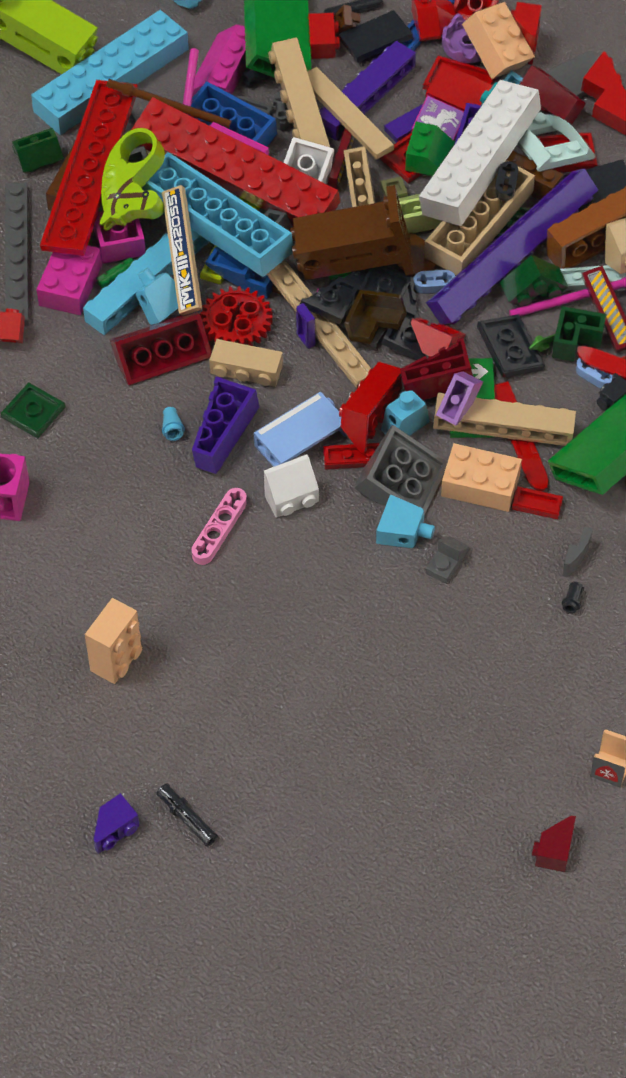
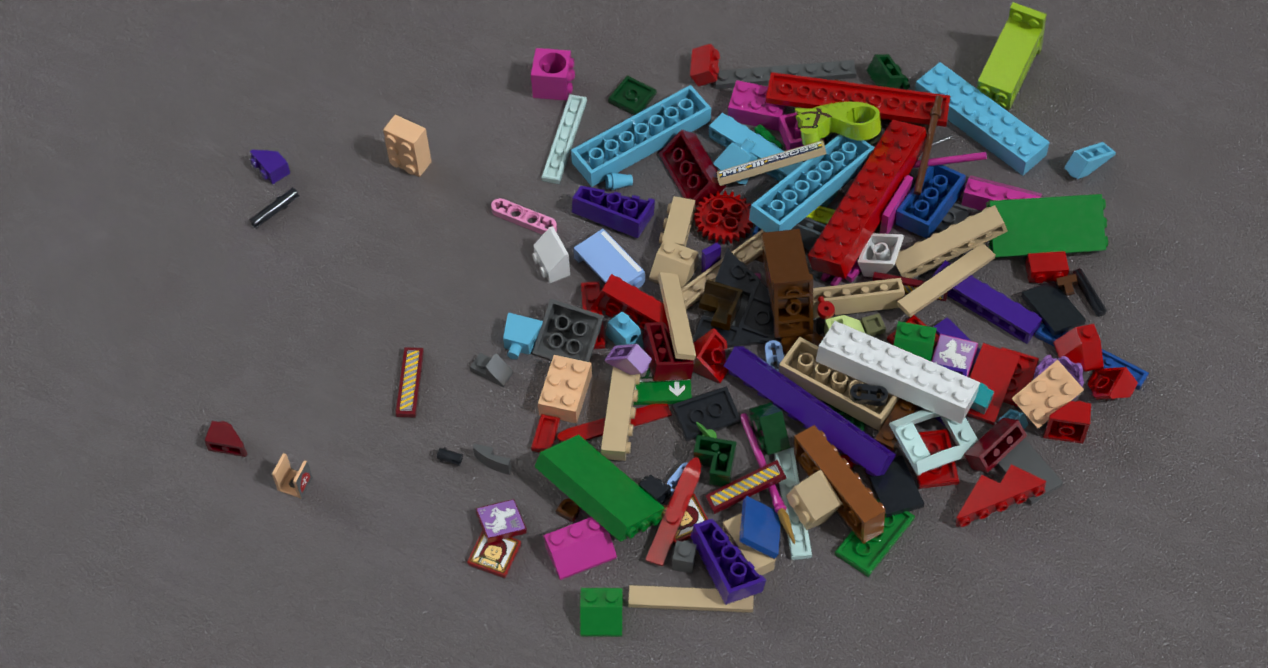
camera: 90 degrees right, 0 degrees up
(96, 483) = (564, 139): none -> light aqua tile
(109, 394) = (640, 135): none -> medium azure brick
(305, 368) = (676, 260): none -> tan slope
(392, 355) = (676, 316): none -> tan tile
(465, 645) = (409, 382): none -> tile

